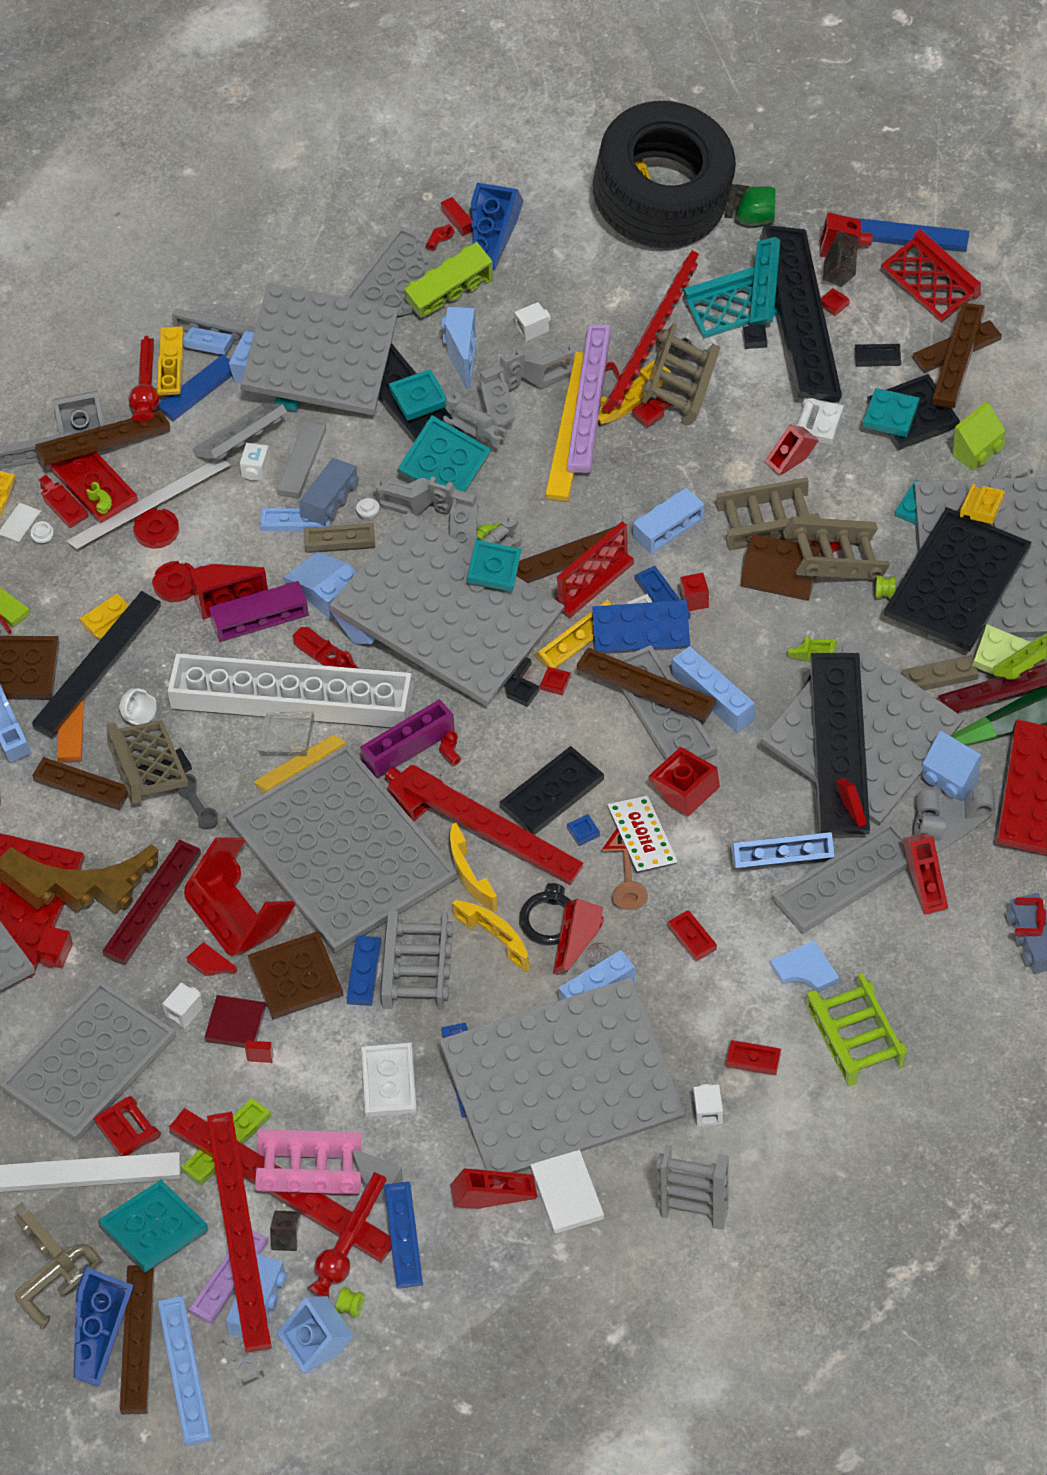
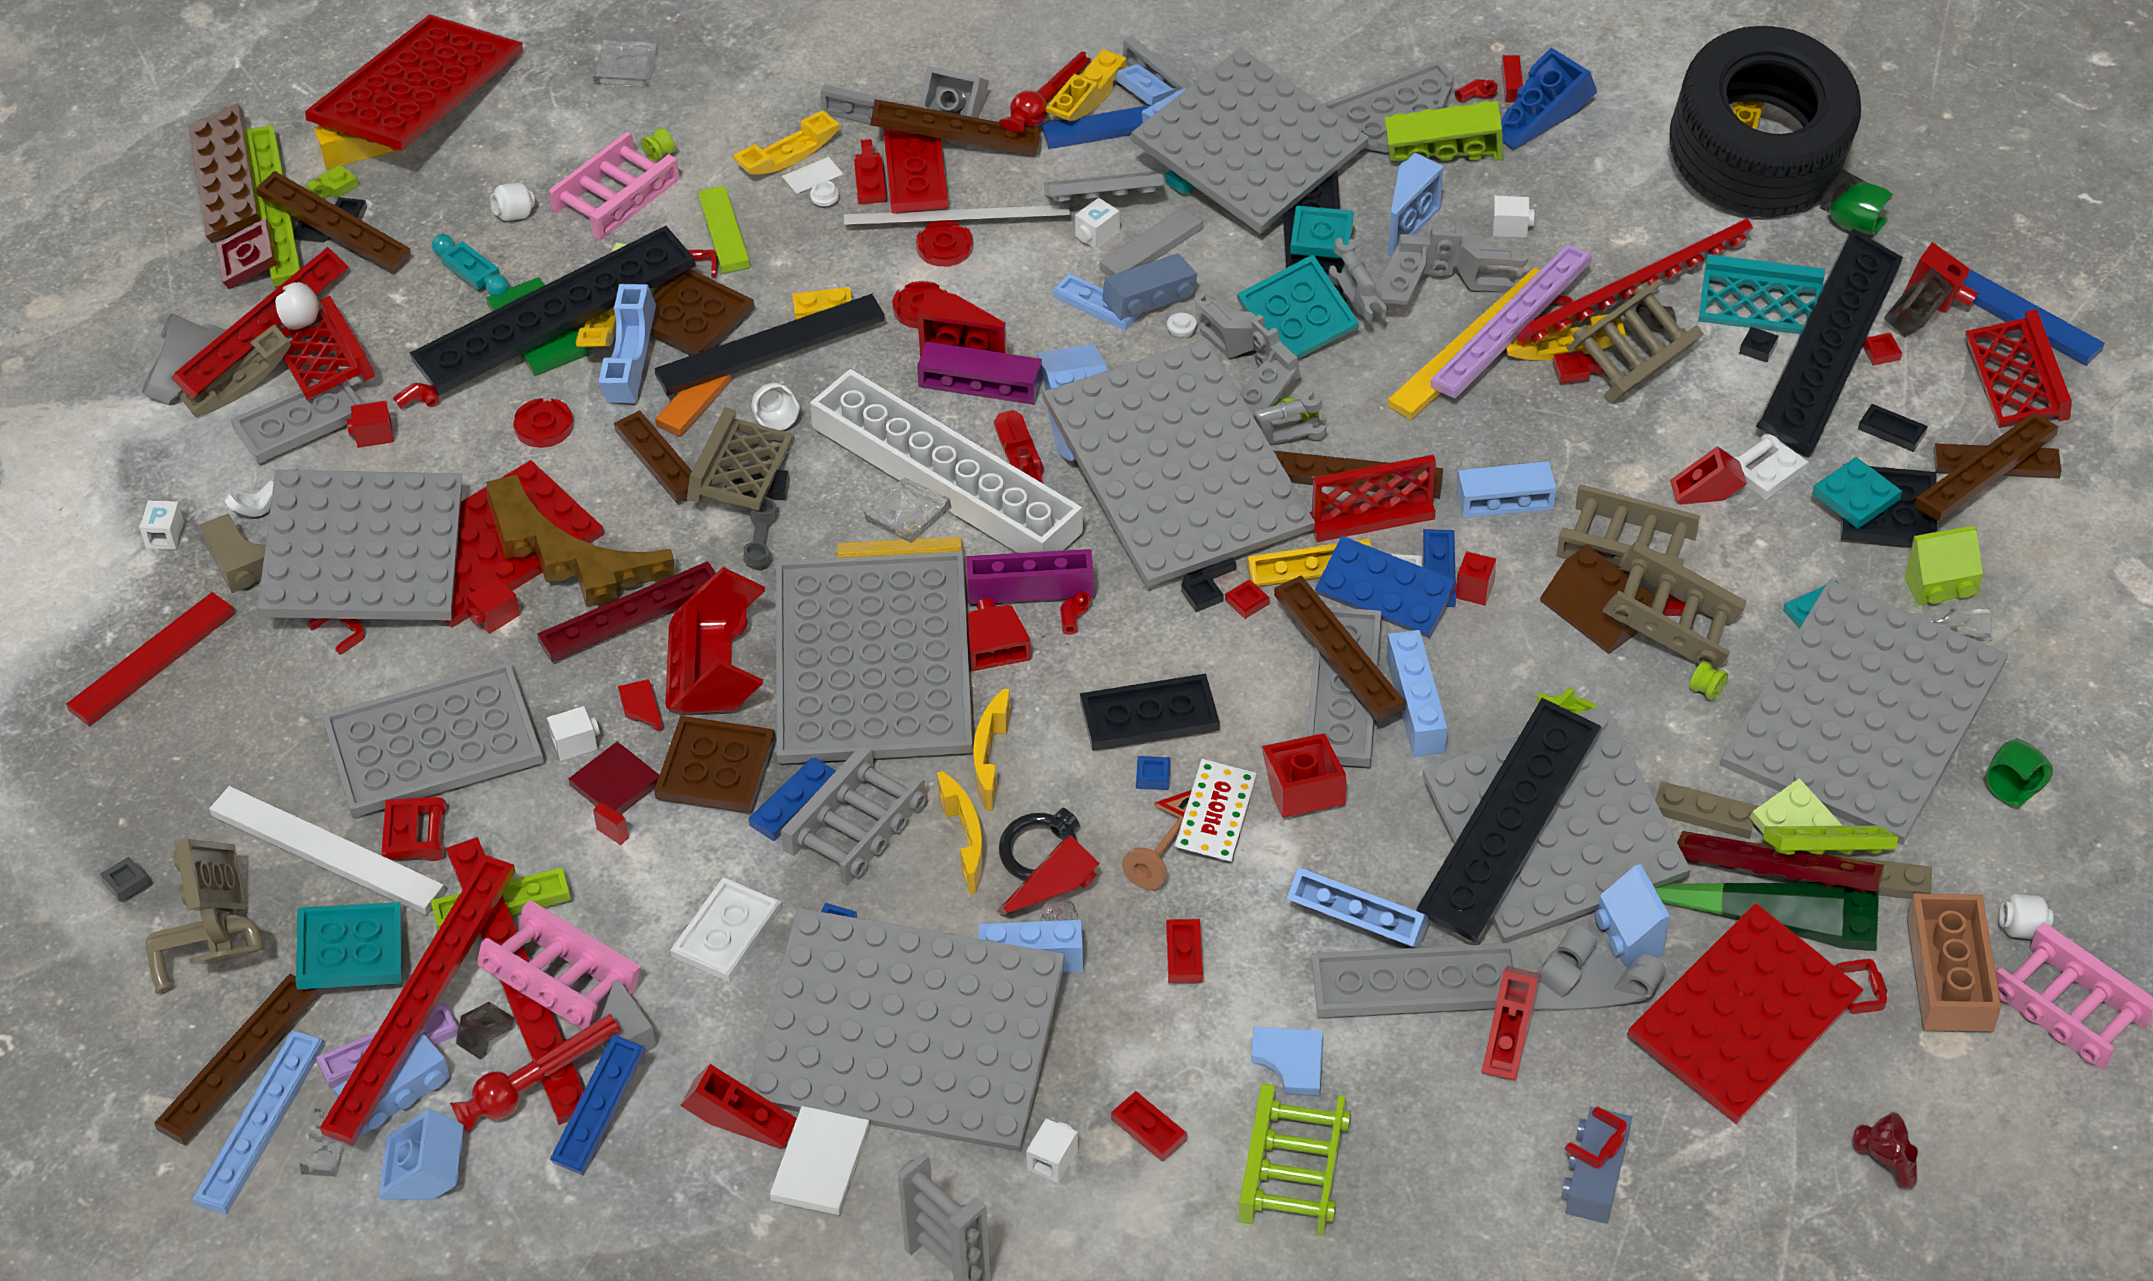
camera: 30 degrees right, 5 degrees down
(98, 1315) = (209, 1005): blue wedge -> none
(105, 500) = (906, 184): lime arm -> none
(339, 537) = (1124, 337): dark tan plate -> none
(350, 1302) = (484, 1146): lime wheel -> none
(493, 826) = (1050, 717): red plate -> none
(494, 565) = (1257, 437): teal plate -> none
(765, 281) = (1807, 286): teal plate -> none
(851, 801) = (1472, 891): red tile -> none
(957, 579) = (1799, 709): black plate -> none
(982, 503) = (1889, 638): yellow plate -> none

